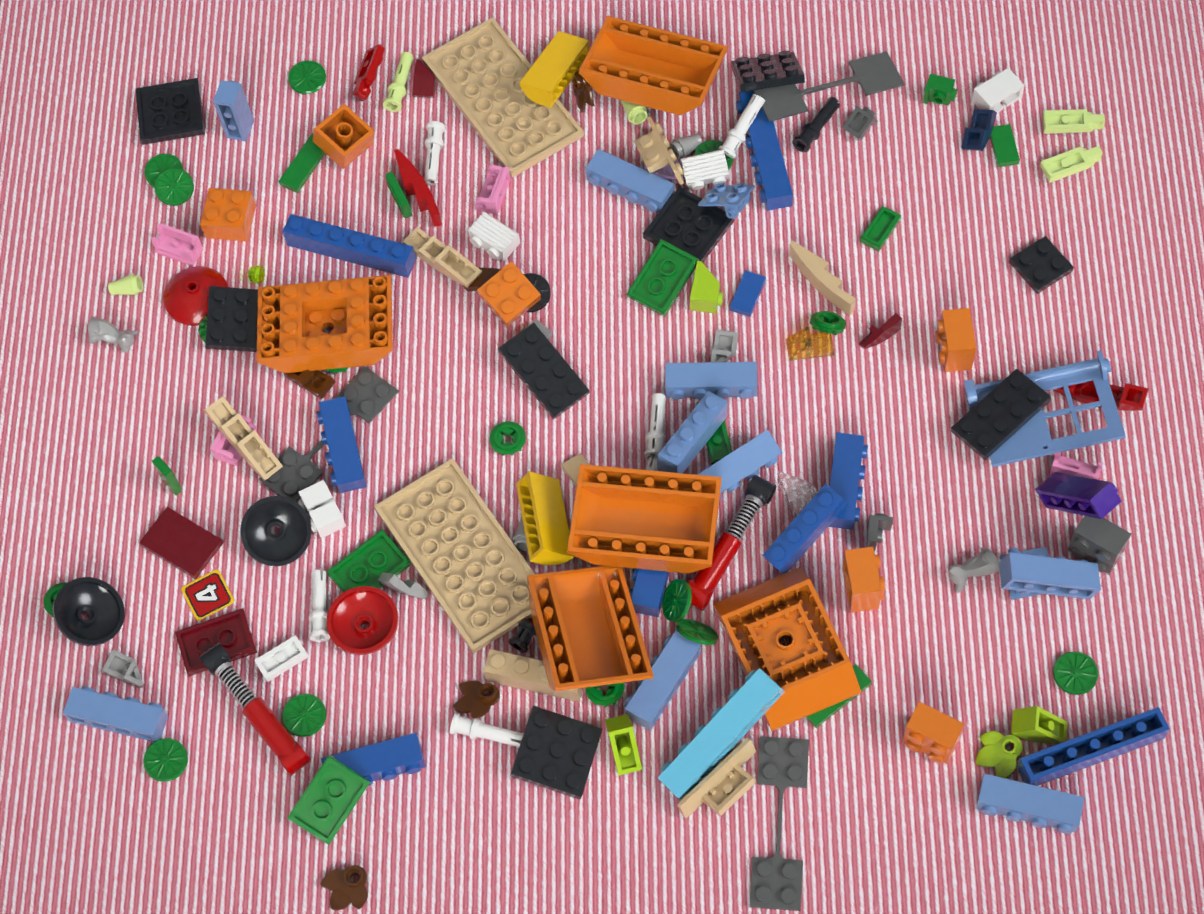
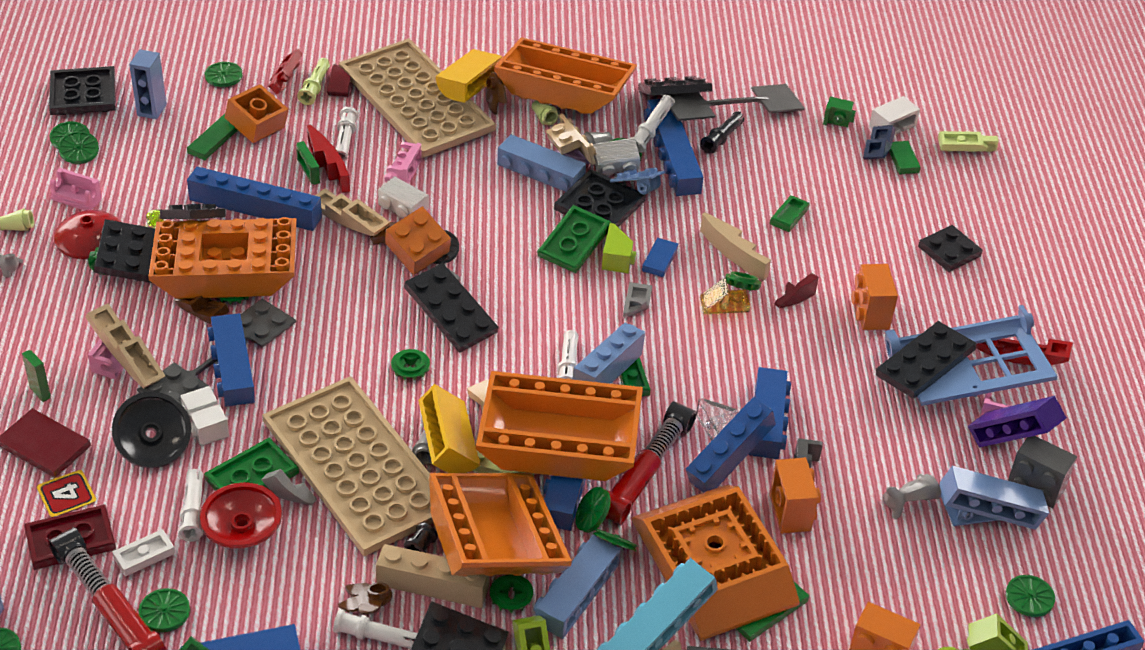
camera: 10 degrees left, 20 degrees down
(228, 214) = (131, 168): orange brick -> none
(291, 272) = (192, 211): none -> black plate
(719, 378) = (600, 320): medium blue brick -> none
(745, 461) = (668, 386): medium blue brick -> none
(860, 122) = (764, 131): dark grey bracket -> none
(1070, 162) = (969, 171): yellowish green hinge -> none

